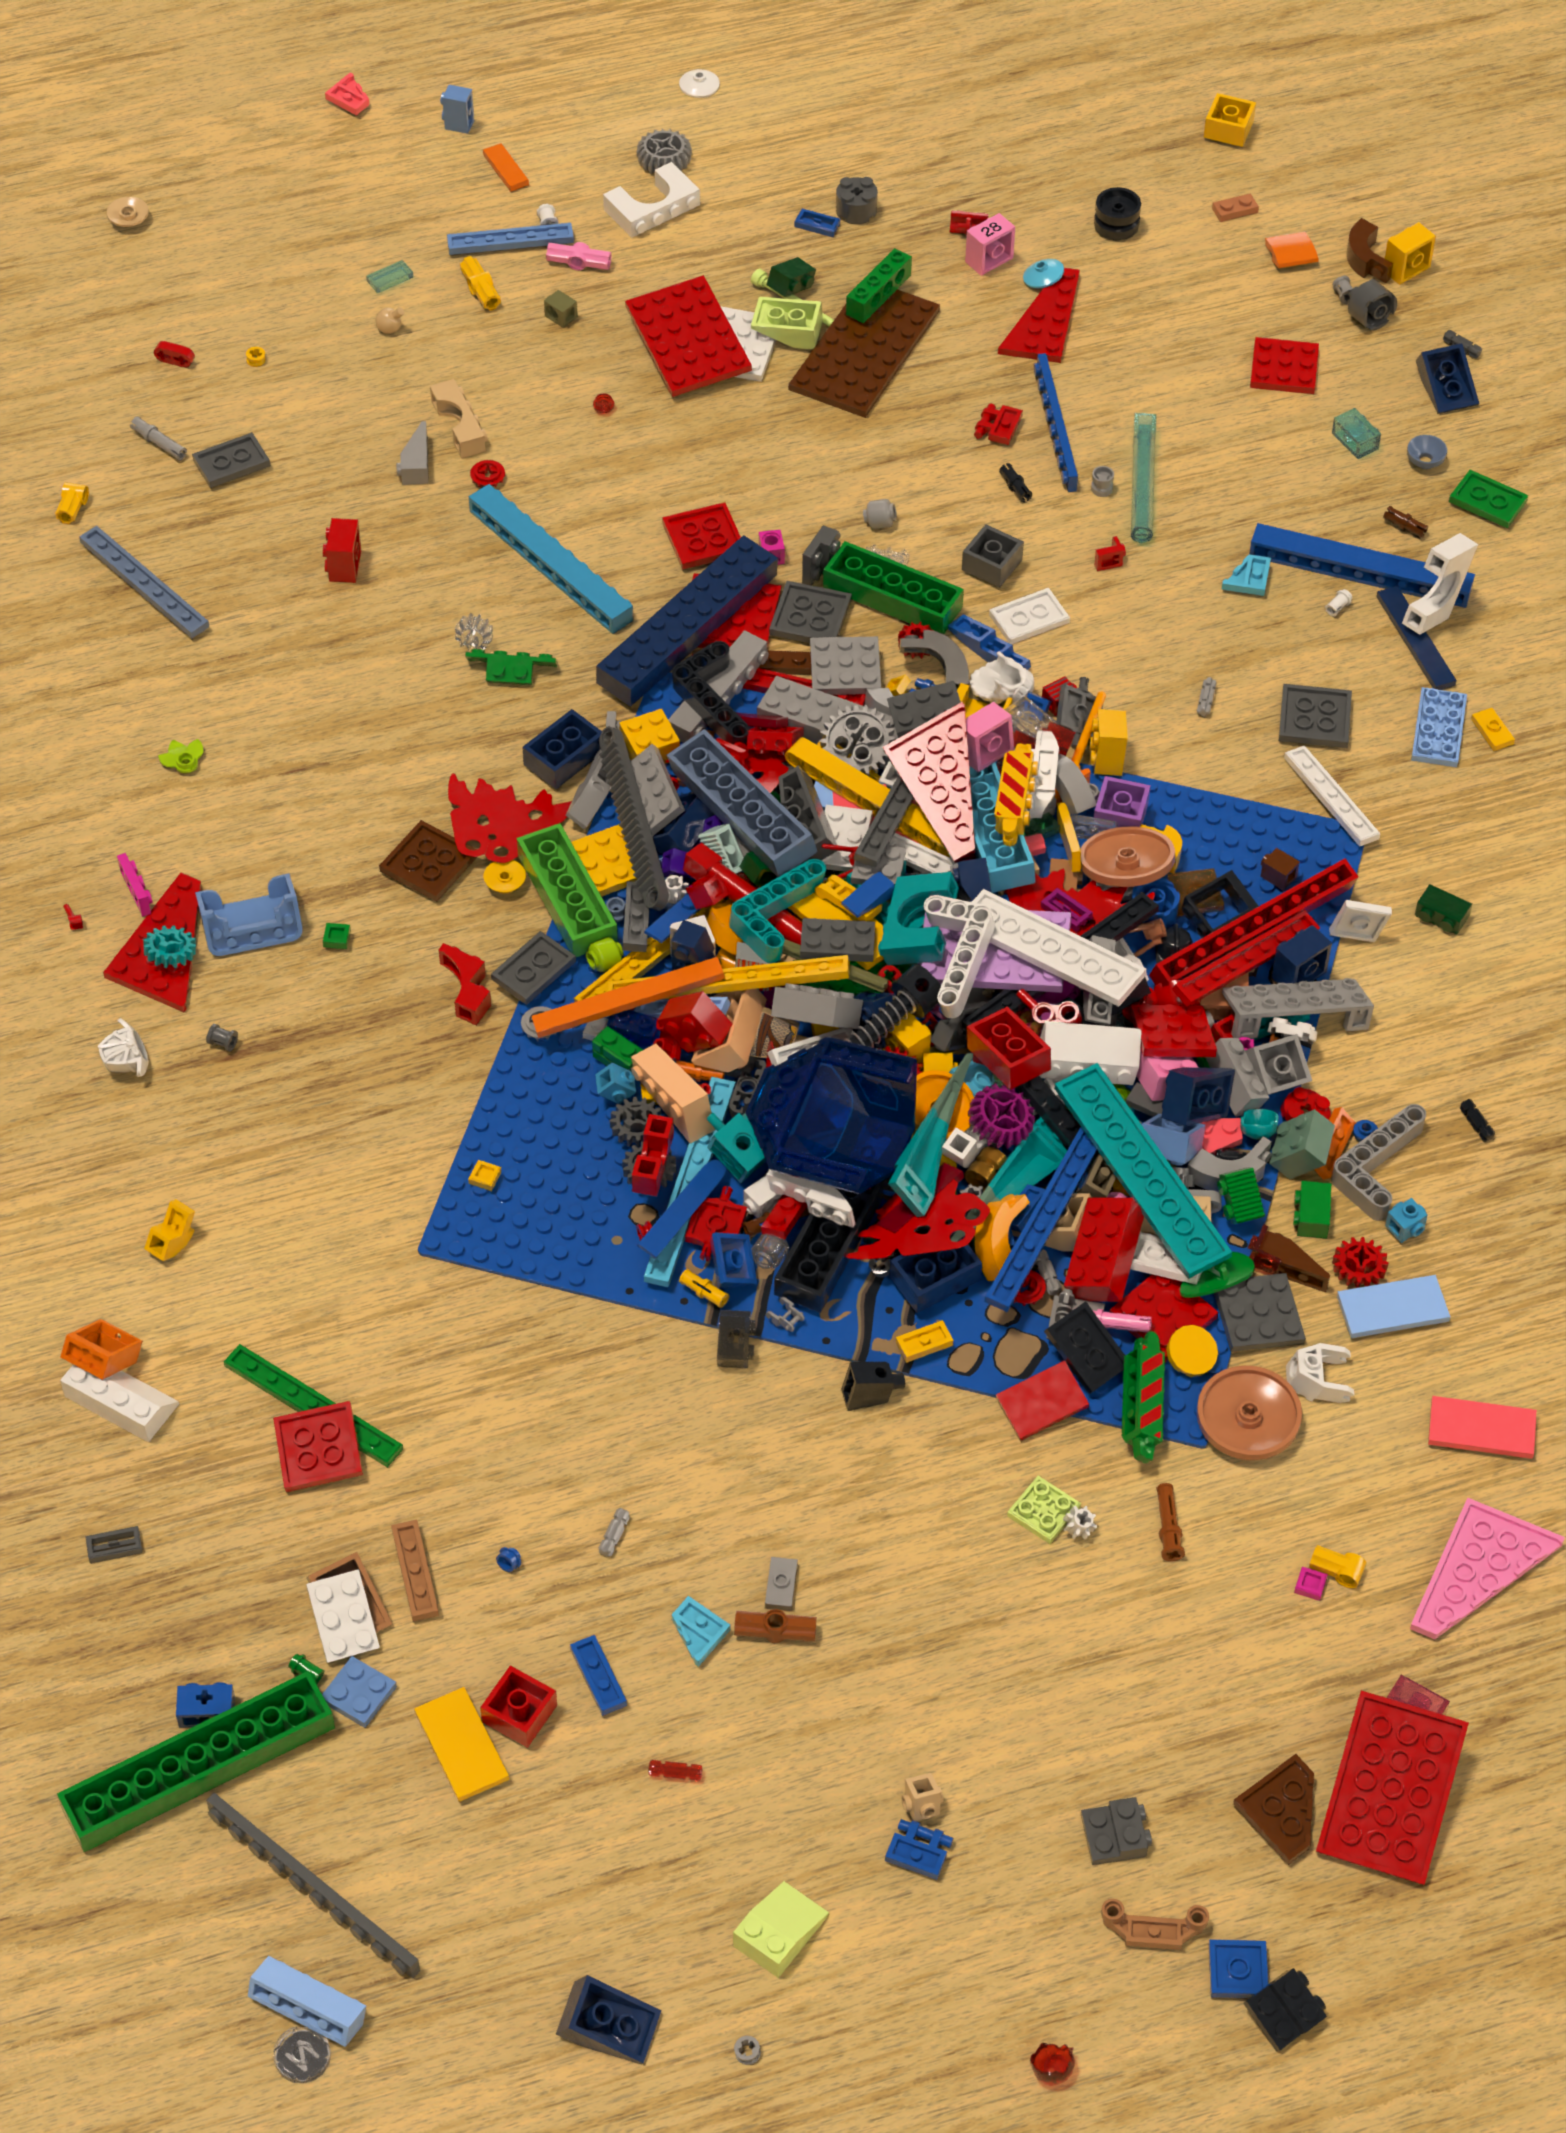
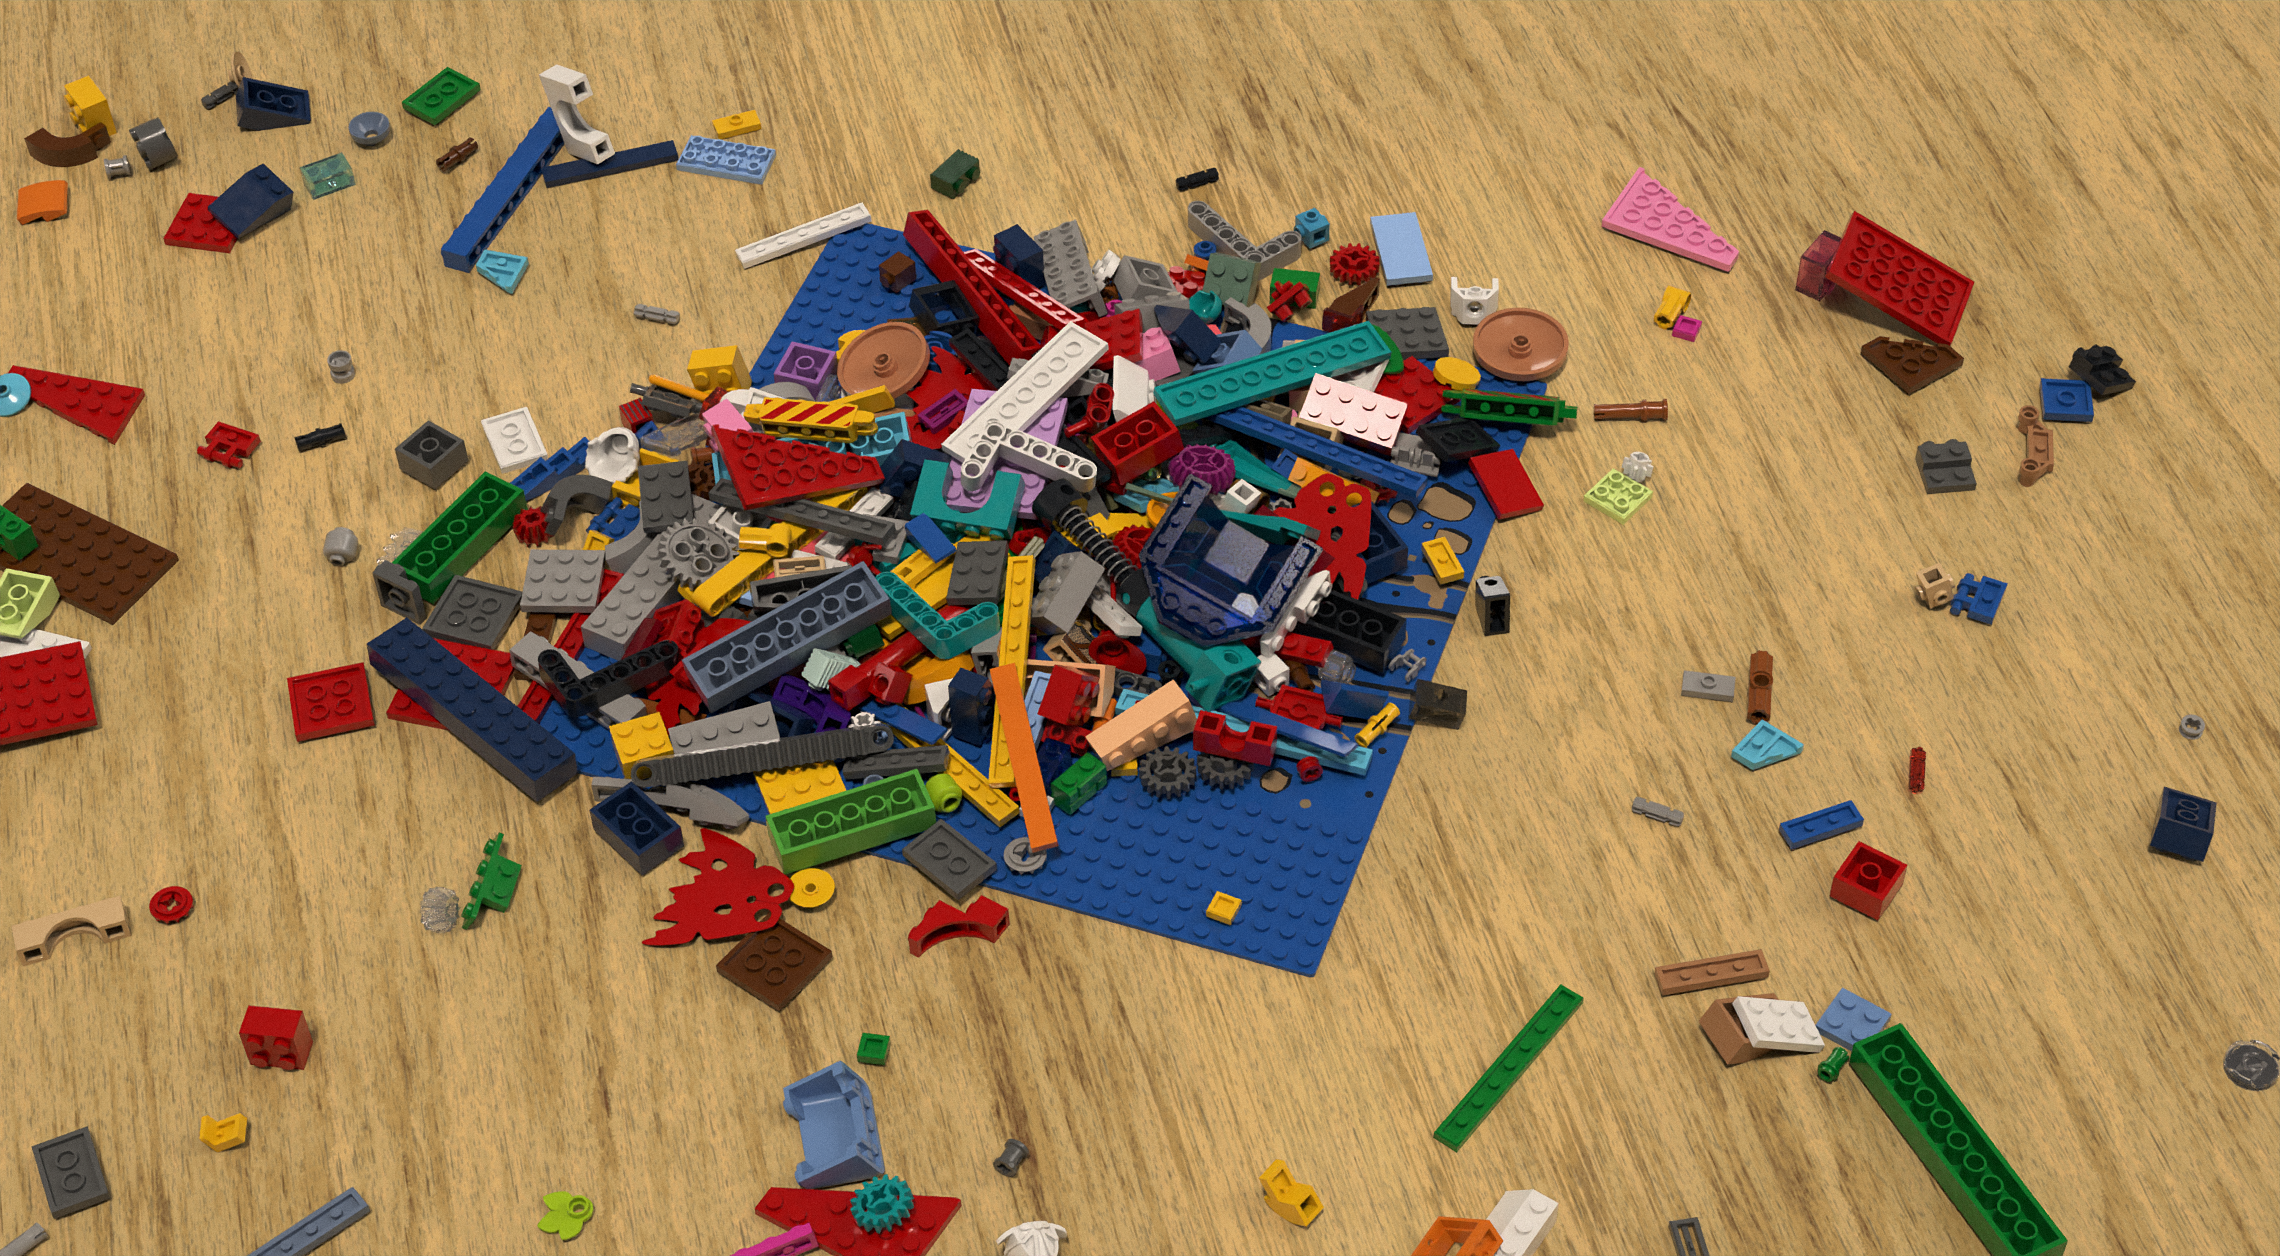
camera: 85 degrees left, 5 degrees down
(192, 1698) = (1885, 1149): blue brick -> none
(263, 537) = (223, 1133): none -> yellow bracket
(306, 2001) = (2204, 1053): light blue brick -> none
(318, 1446) = (1570, 1053): red plate -> none
(318, 1891) = (2073, 1059): dark grey plate -> none
(414, 458) = (129, 973): light grey slope -> none
(461, 1744) = (1907, 933): yellow tile -> none
(508, 1559) = (1694, 894): blue plate -> none
(551, 558) = (329, 843): dark azure brick -> none
(603, 403) = (87, 790): clear red plate -> none
(615, 1083) = (1124, 793): dark azure brick -> none
(773, 542) = (359, 636): dark pink brick -> none
(778, 1928) = (2072, 697): yellowish green slope -> none
(845, 828) = (799, 564): none -> tan tile
(860, 779) = (772, 540): none -> yellow piece
(1052, 2063) = (2175, 517): clear red hair -> none
(1056, 427) = (242, 396): blue plate -> none
(1110, 556) = (447, 364): red bracket -> none
(1124, 1321) = (1427, 416): bright pink pin -> none
(1143, 477) = (281, 331): clear light blue brick -> none
(1240, 1195) = (1290, 320): green brick -> none
(1281, 1198) = (1297, 294): none -> red hips
(1303, 384) = (252, 201): none -> dark blue slope
(1315, 715) = (698, 238): dark grey plate -> none
(1342, 599) = (549, 207): white pin -> none
(1360, 921) = (974, 219): white tile -> none
(1482, 1427) = (1527, 206): coral tile -> none
(1485, 353) = (239, 68): none -> tan dish

